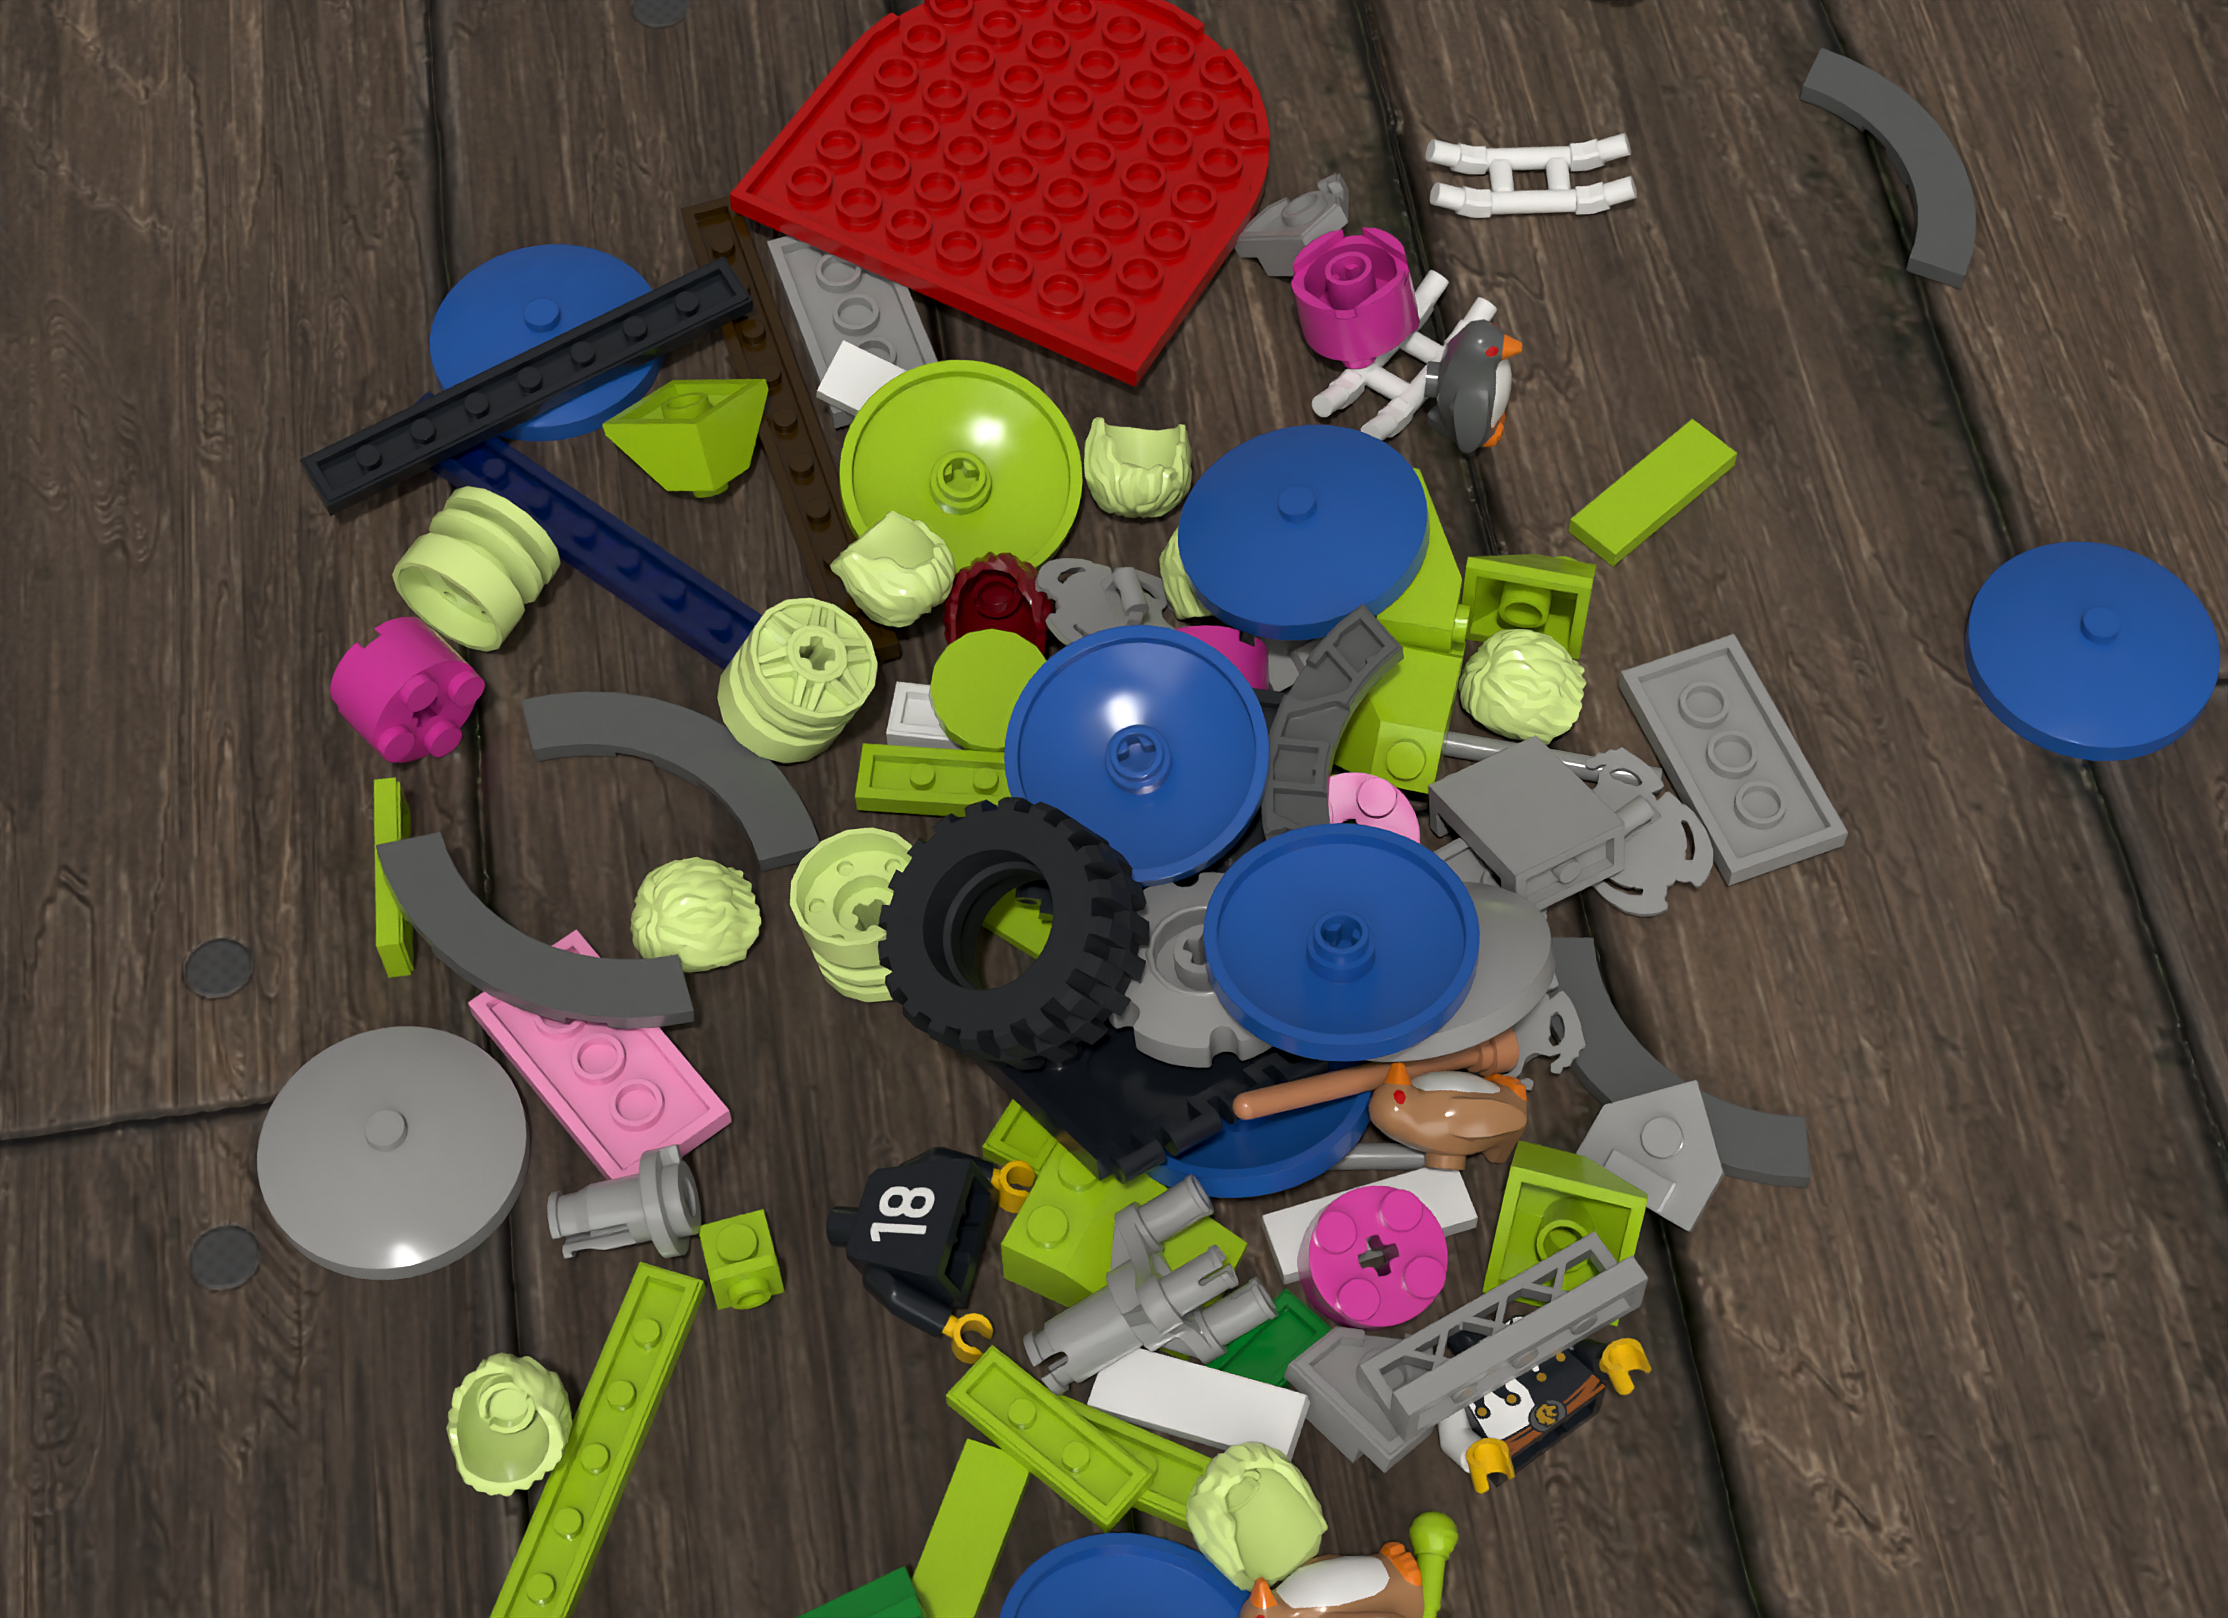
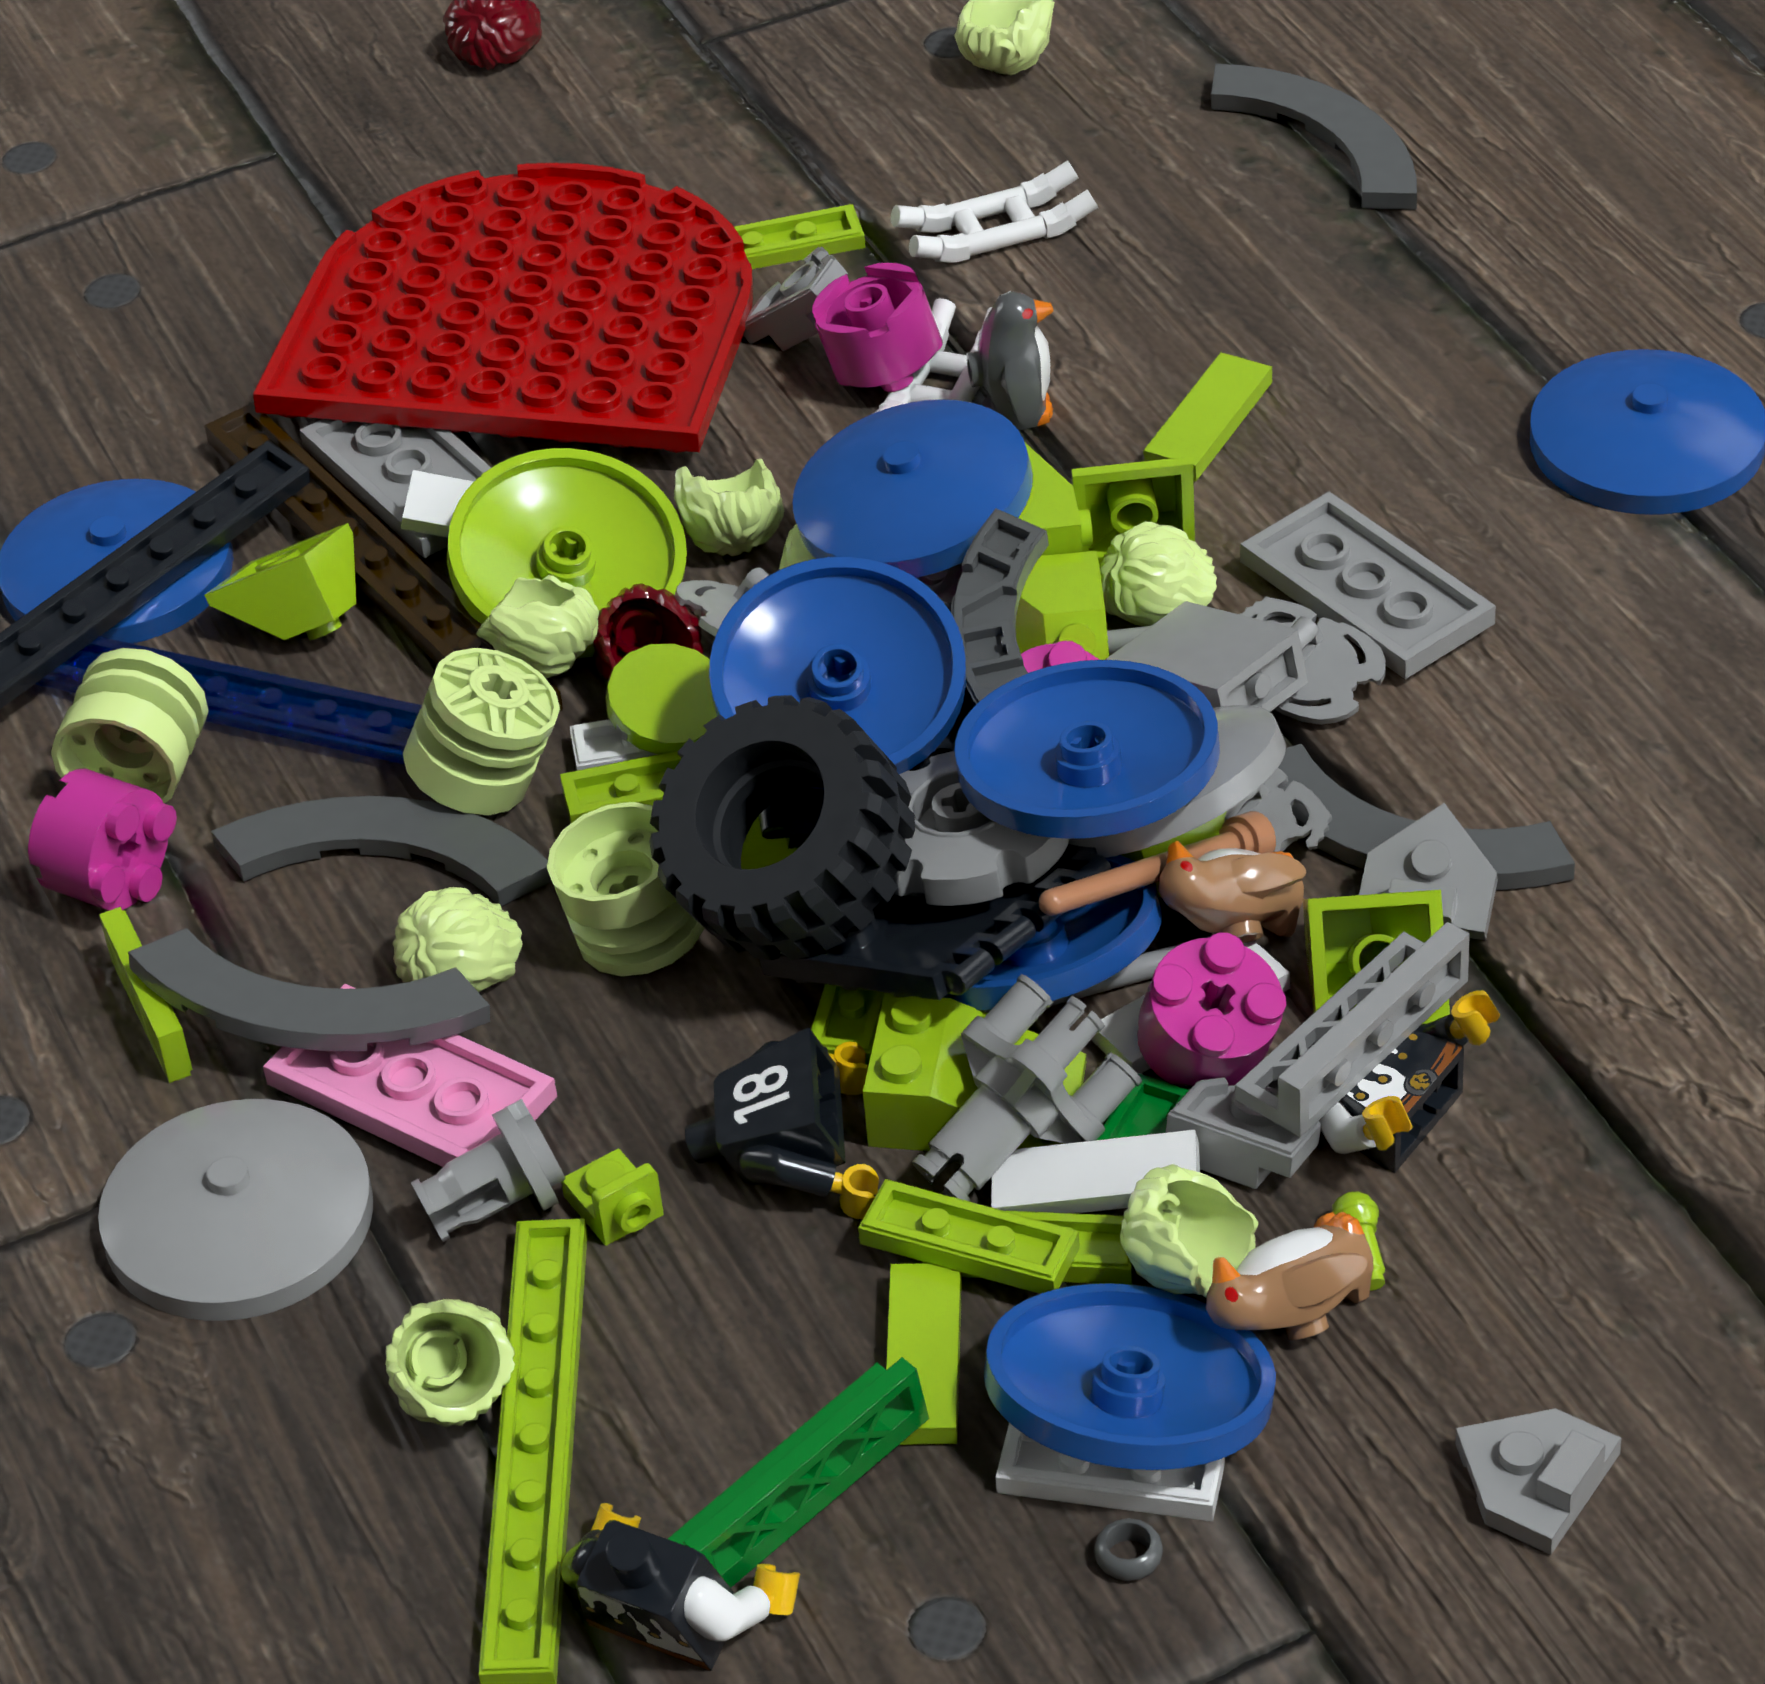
camera: 15 degrees left, 15 degrees down
(1332, 140) = (798, 235): none -> lime tile

